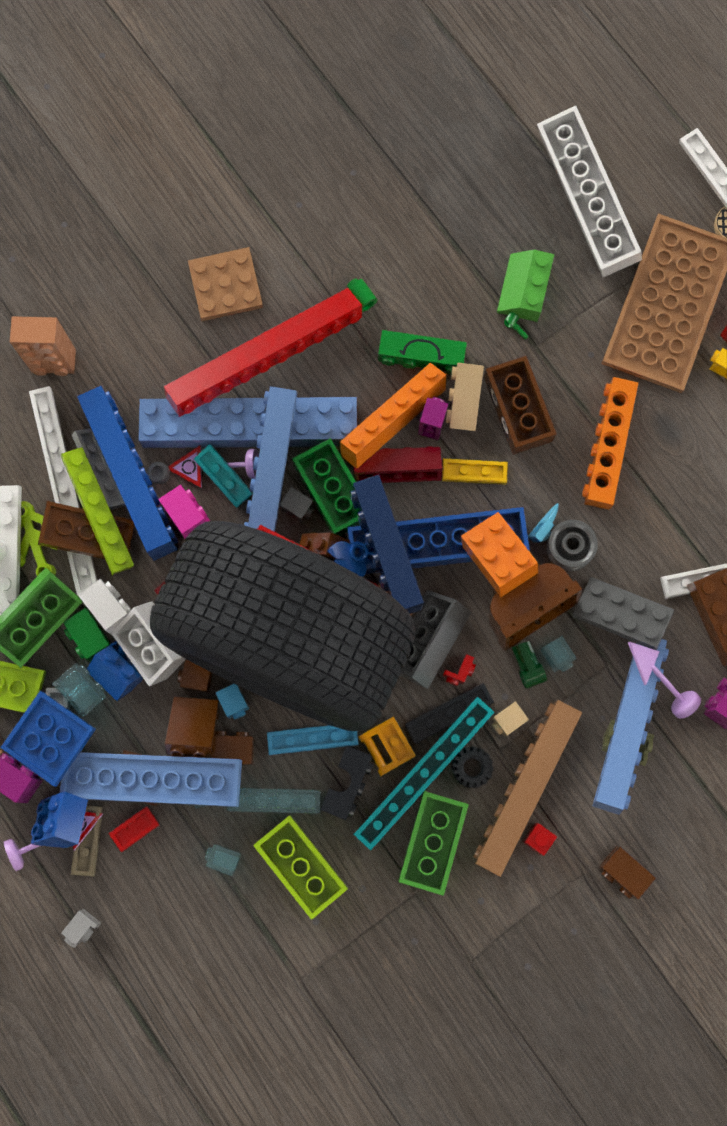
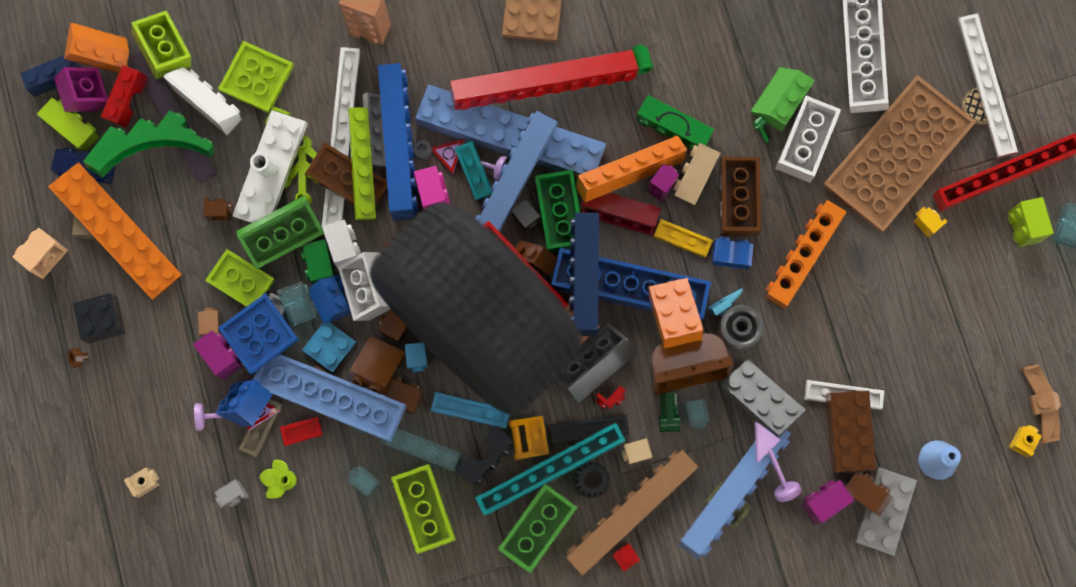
camera: 20 degrees right, 0 degrees up
(124, 894) = (275, 478): none -> lime plate
(132, 724) = (329, 346): none -> dark azure plate
(345, 556) = (548, 273): blue plate -> none
(533, 469) = (732, 254): none -> blue brick
(569, 319) = (808, 139): none -> white brick

